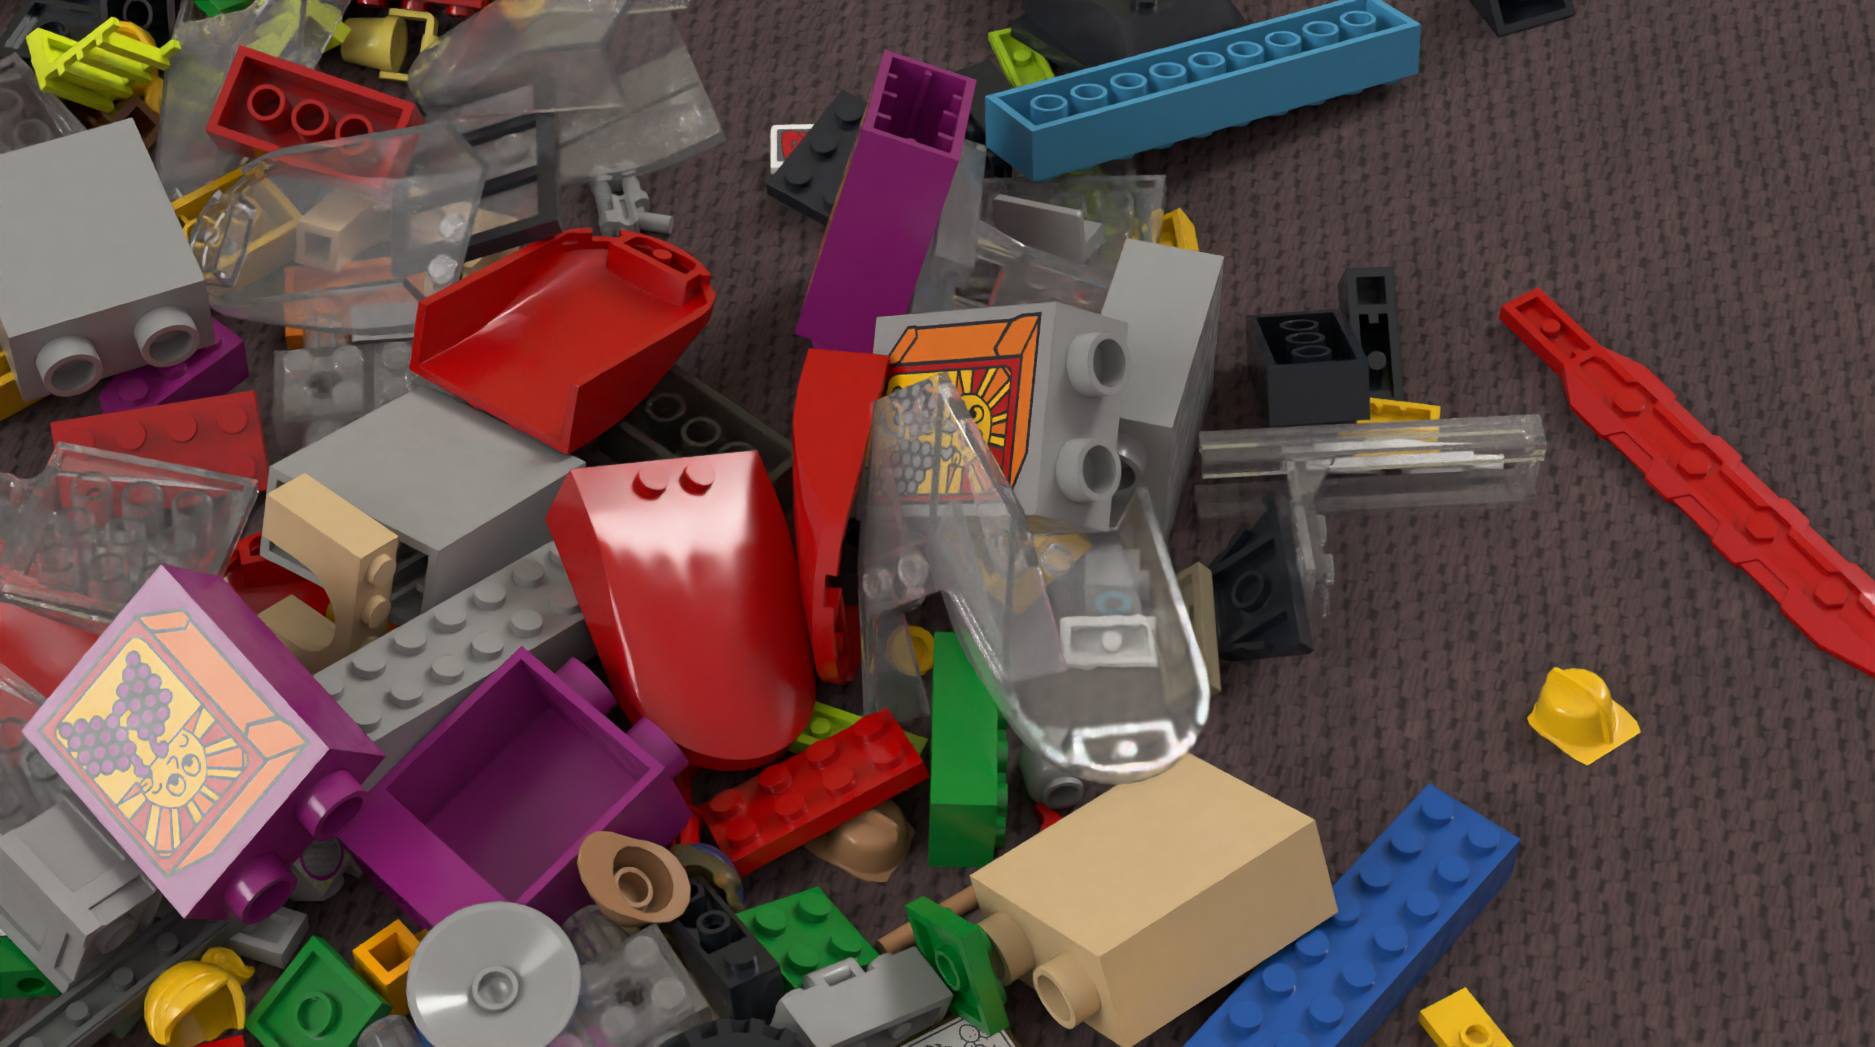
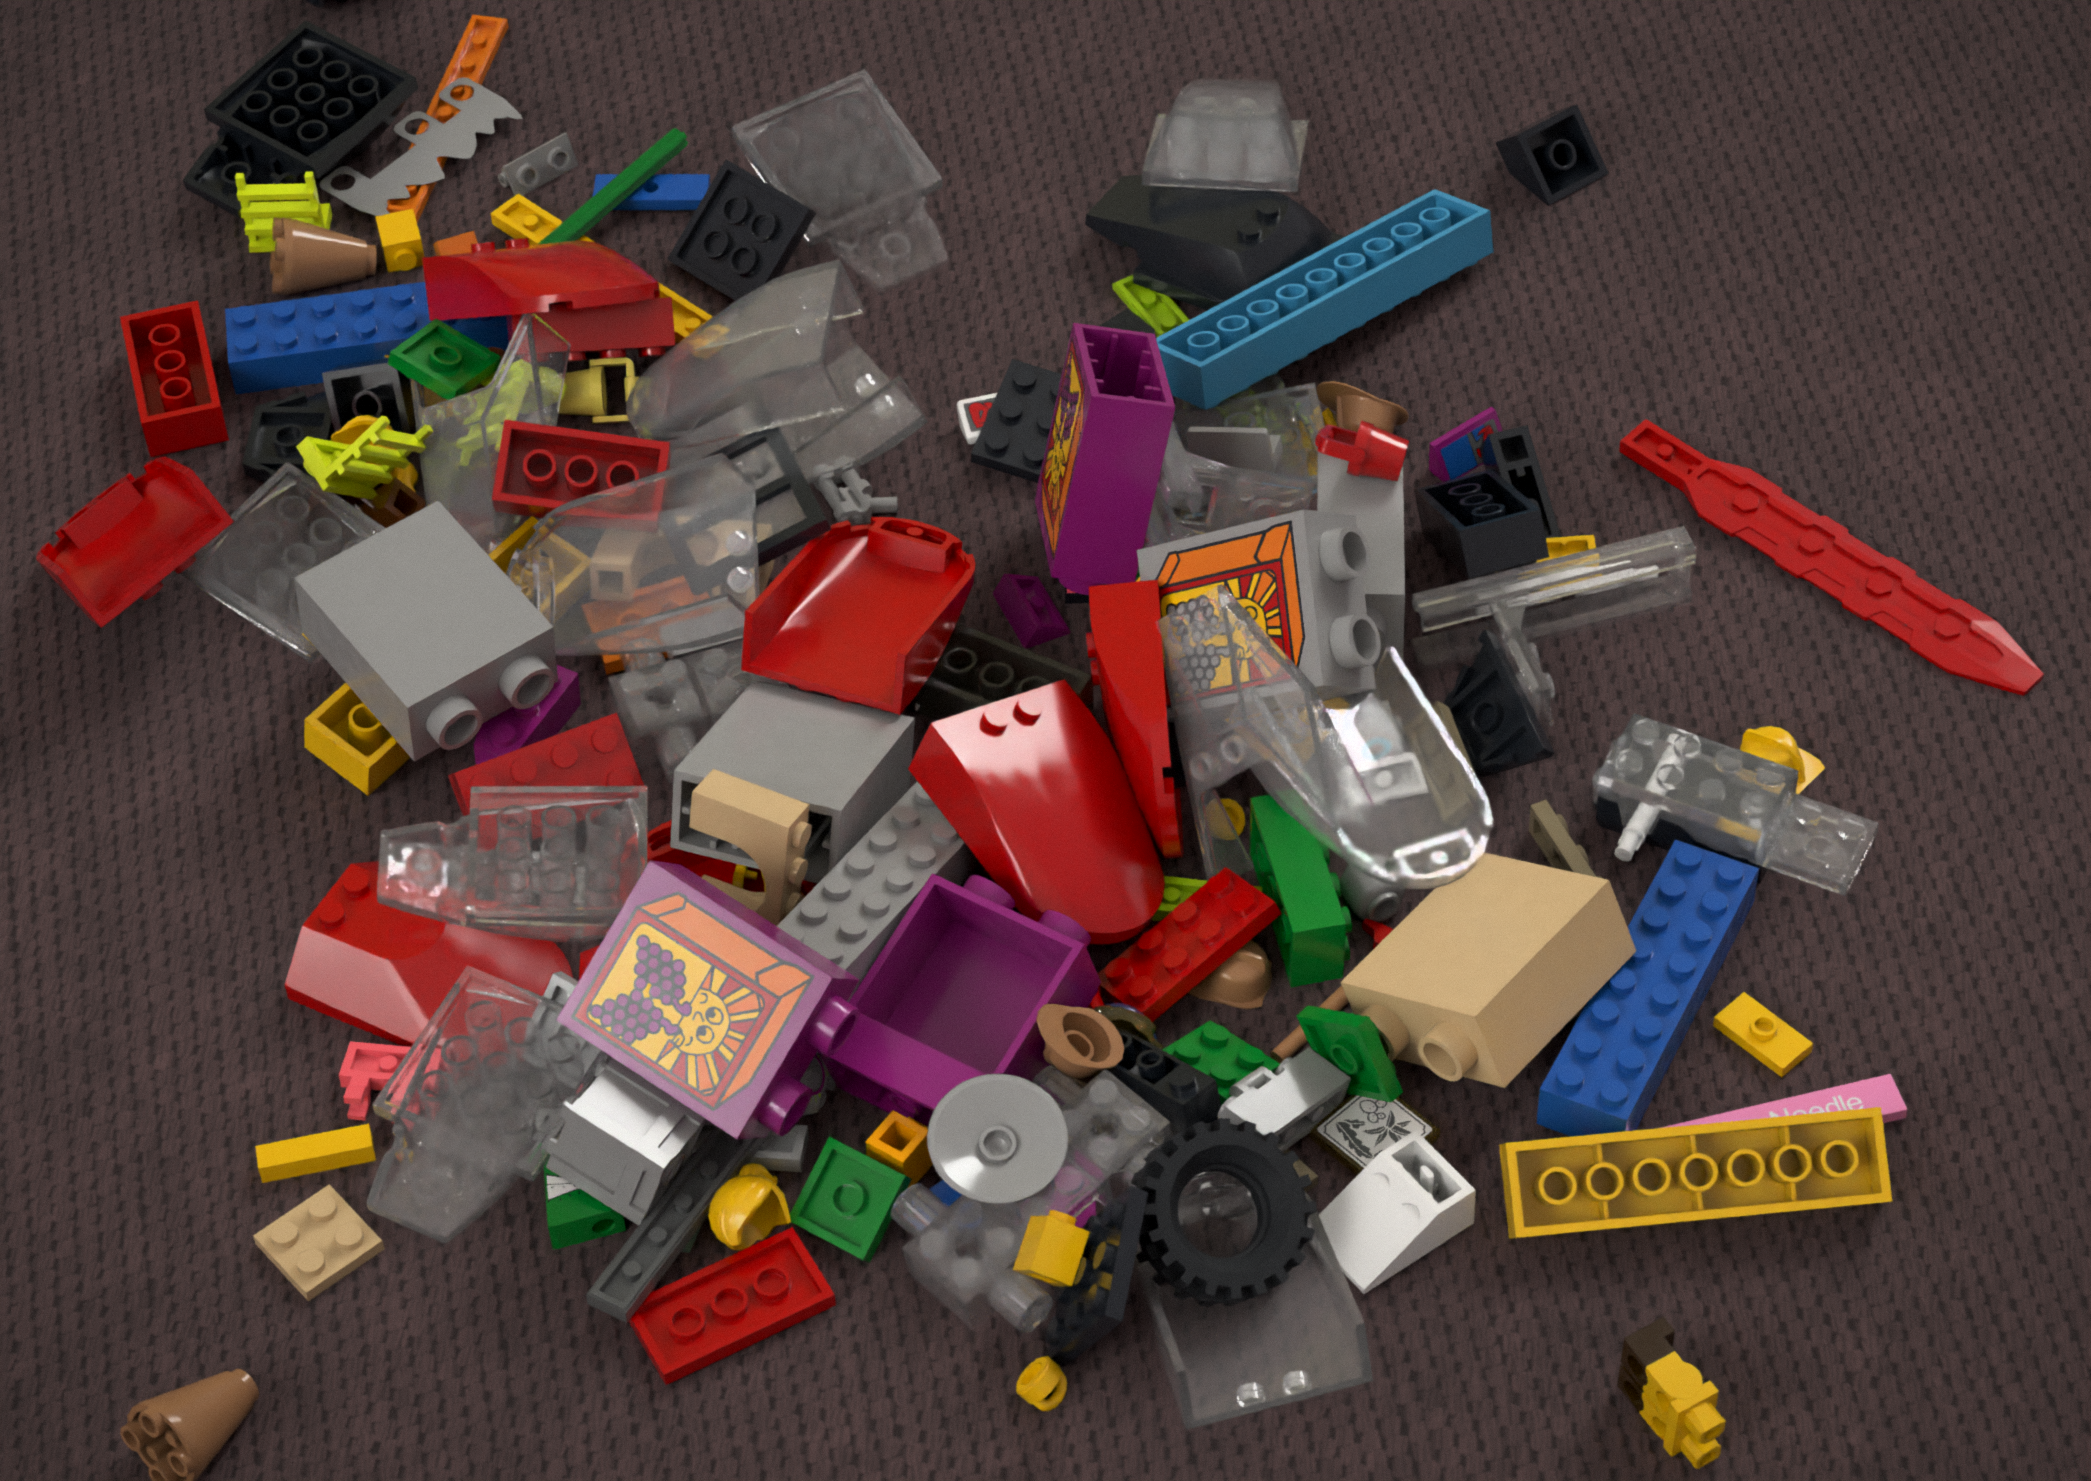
camera: 10 degrees left, 0 degrees up
(773, 365) = (1029, 609): none -> magenta slope
(1173, 253) = (1369, 450): none -> red piece
(1214, 223) = (1356, 405): none -> medium nougat piece
(1298, 780) = (1553, 838): none -> dark tan plate
(1314, 280) = (1458, 449): none -> slope
(1504, 753) = (1693, 790): none -> clear piece

